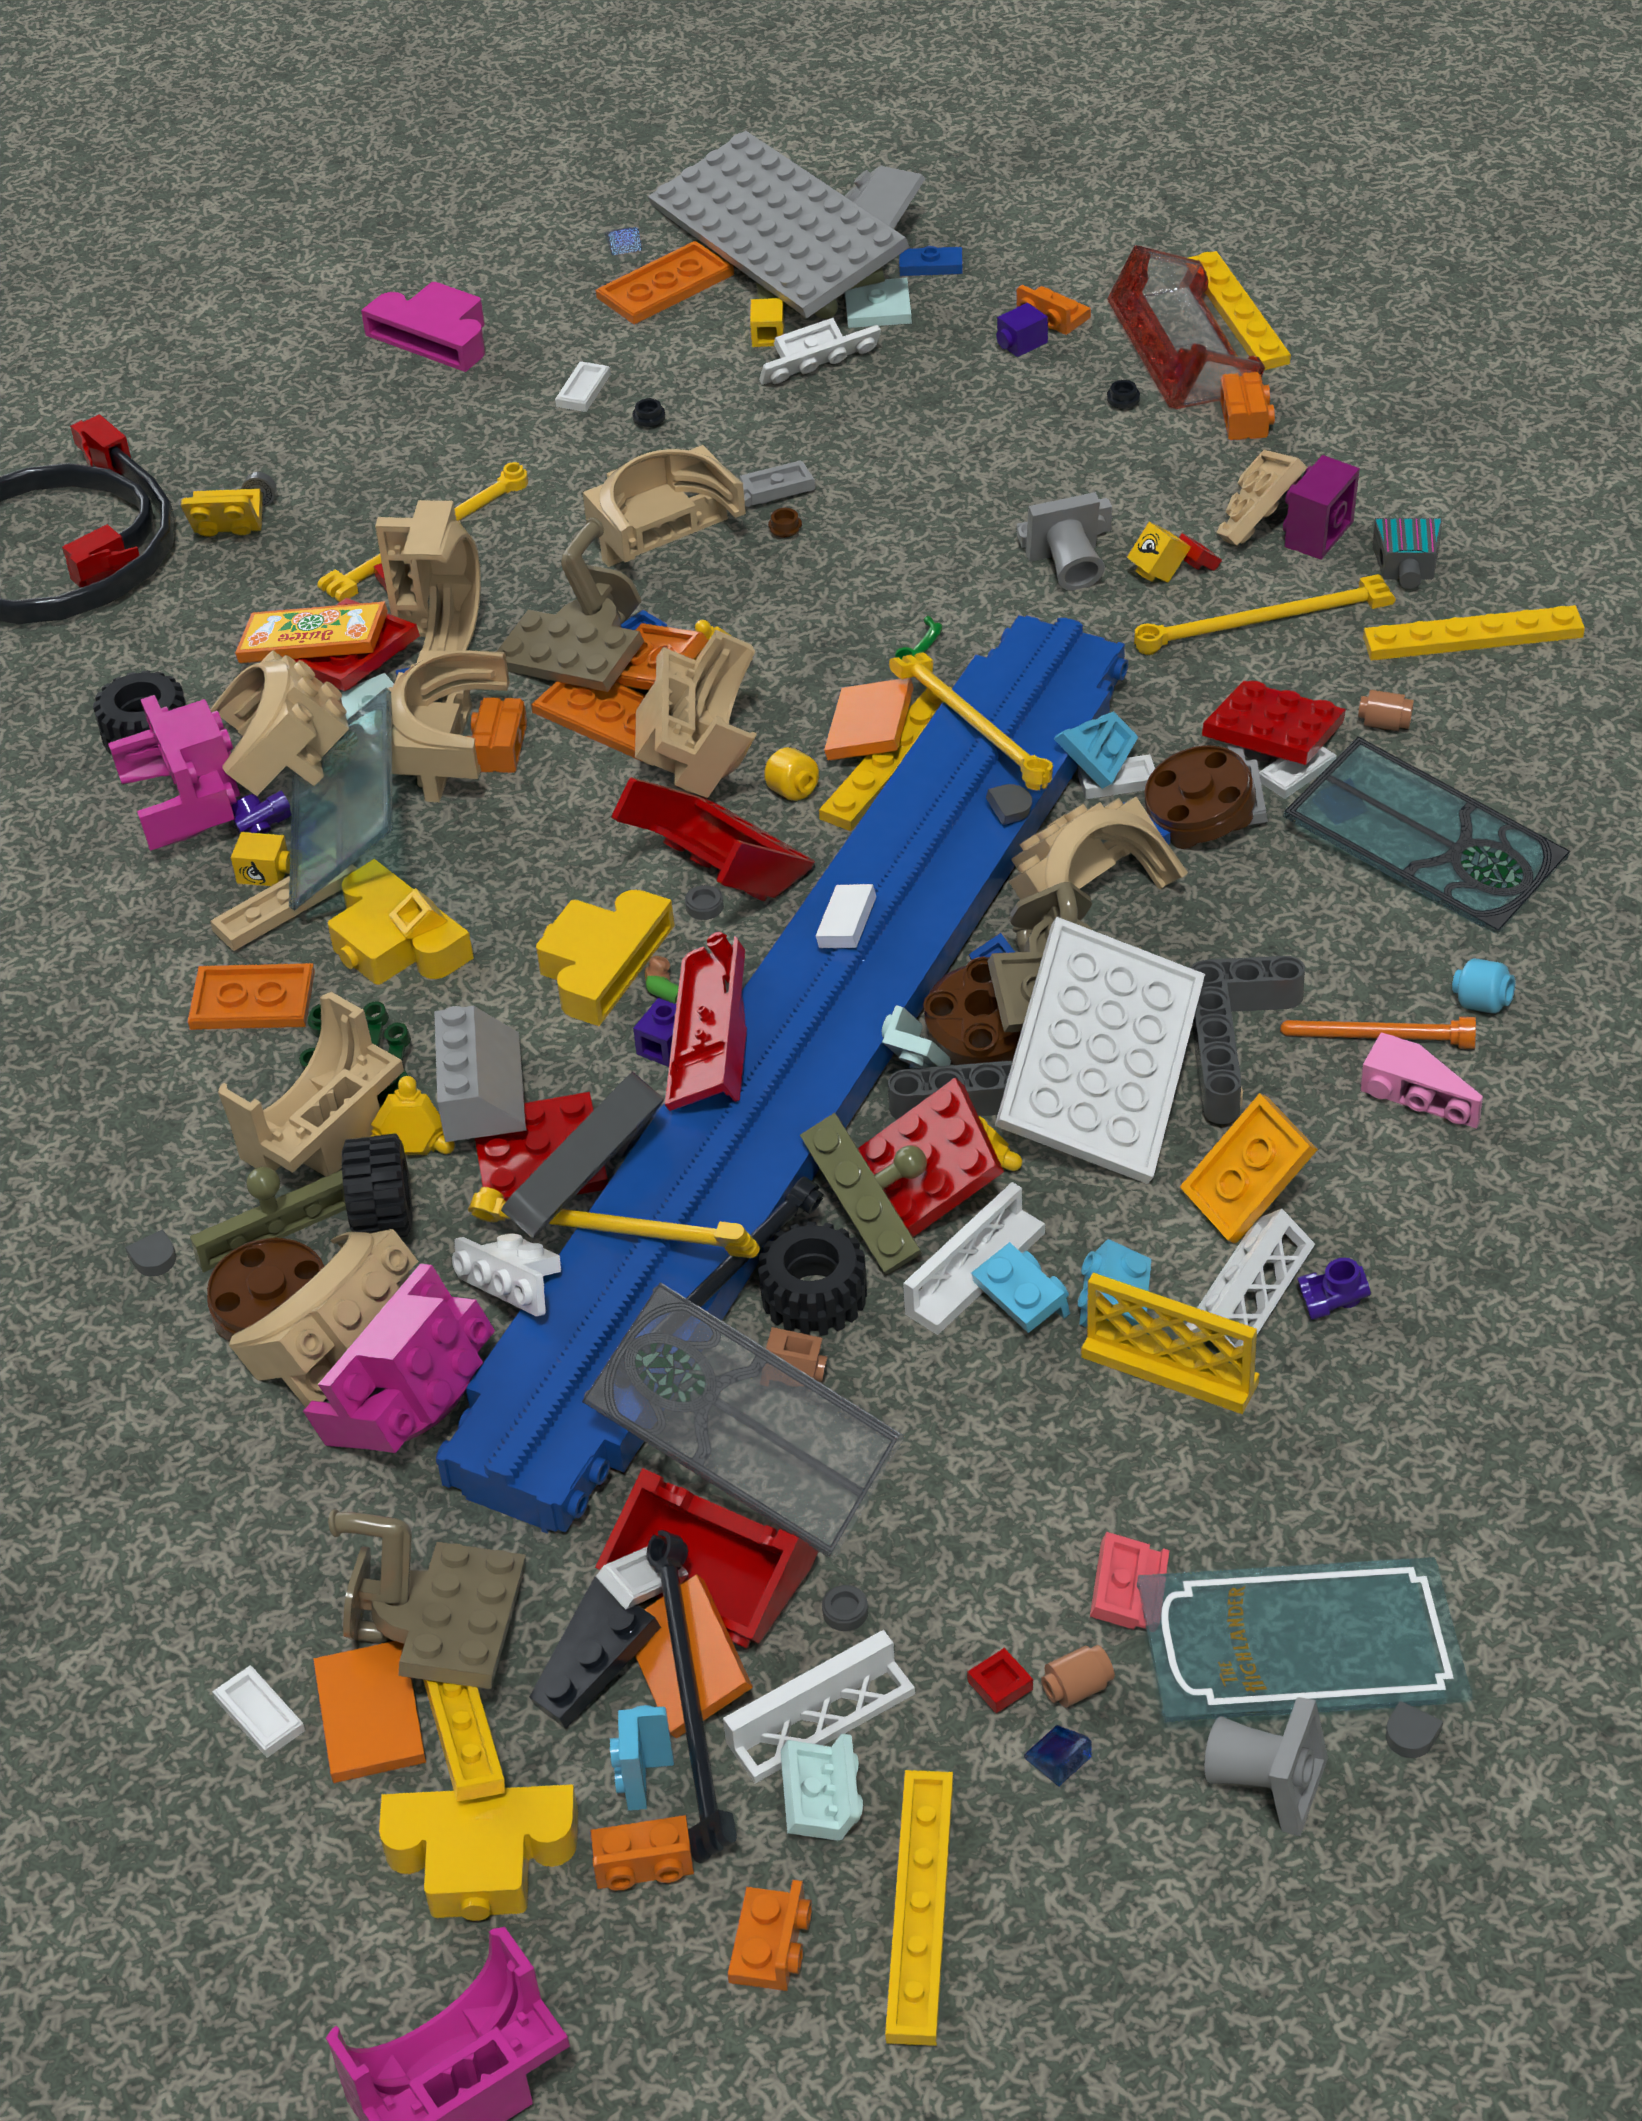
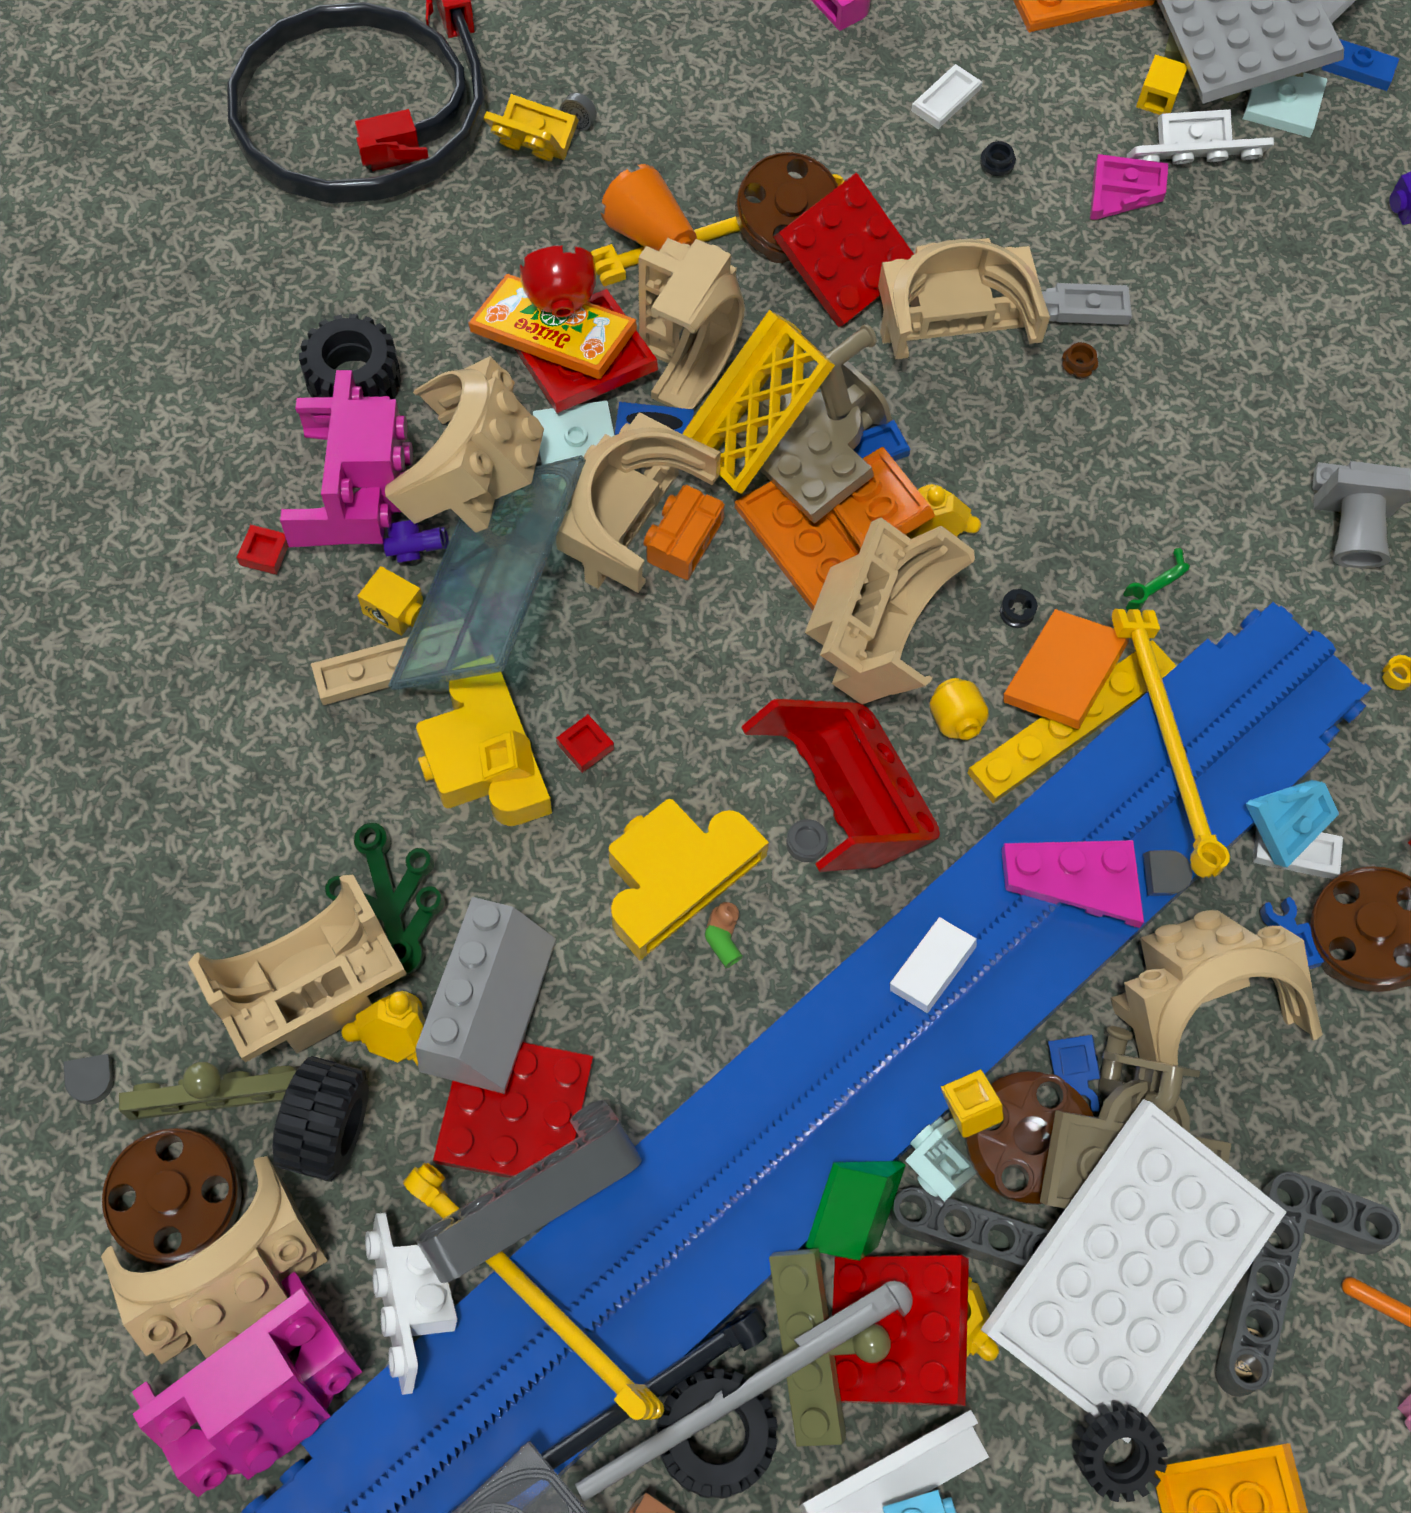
camera: 15 degrees right, 20 degrees up
(126, 863) = (263, 549): none -> red plate
(251, 996) = (316, 773): orange tile -> none
(304, 587) = (558, 280): none -> red cylinder
(348, 529) = (645, 209): none -> orange cone
(480, 898) = (585, 743): none -> red plate
(486, 489) = (780, 198): none -> reddish brown piece
(504, 607) = (741, 389): none -> yellow fence
(539, 503) = (842, 248): none -> red plate
(655, 1032) = (698, 1009): dark purple brick -> none
(708, 1025) = (732, 1057): red piece -> none
(768, 397) = (1126, 185): none -> dark pink wing
(810, 706) = (1023, 597): none -> black bush
(857, 1088) = (855, 1208): none -> green slope
(911, 1123) = (812, 1345): none -> light grey bar
(922, 996) = (973, 1103): none -> yellow slope
(941, 820) = (1080, 874): none -> dark pink wing
(1162, 1159) = (1134, 1472): none -> black tyre

